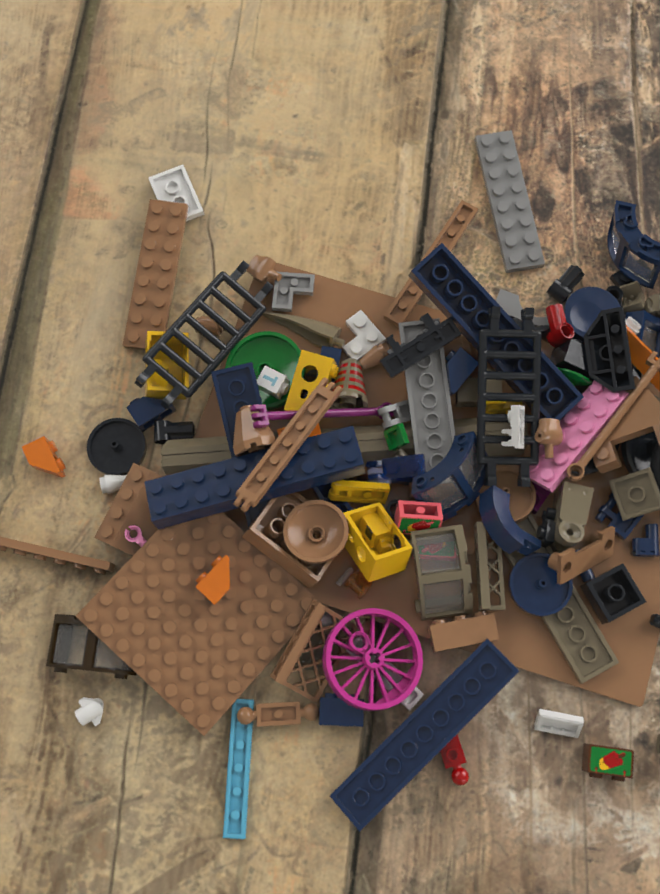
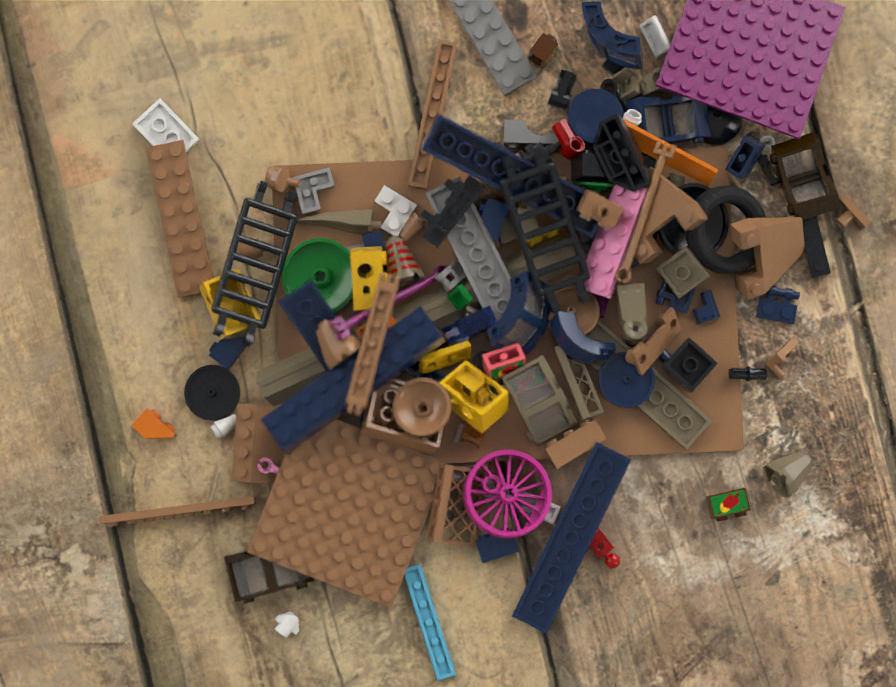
camera: 25 degrees left, 10 degrees up
(166, 430) = (256, 361): black piece -> none
(217, 581) = (354, 479): orange slope -> none
(273, 382) = (334, 288): white brick -> none
(278, 713) = (445, 567): medium nougat plate -> none
(516, 418) = (558, 248): white plate -> none
(546, 531) = (616, 331): black plate -> none
(549, 434) = (590, 249): medium nougat piece -> none
(558, 723) = (679, 488): white plate -> none
(560, 239) = (543, 50): none -> reddish brown brick
(572, 396) = (599, 209): none -> medium nougat brick

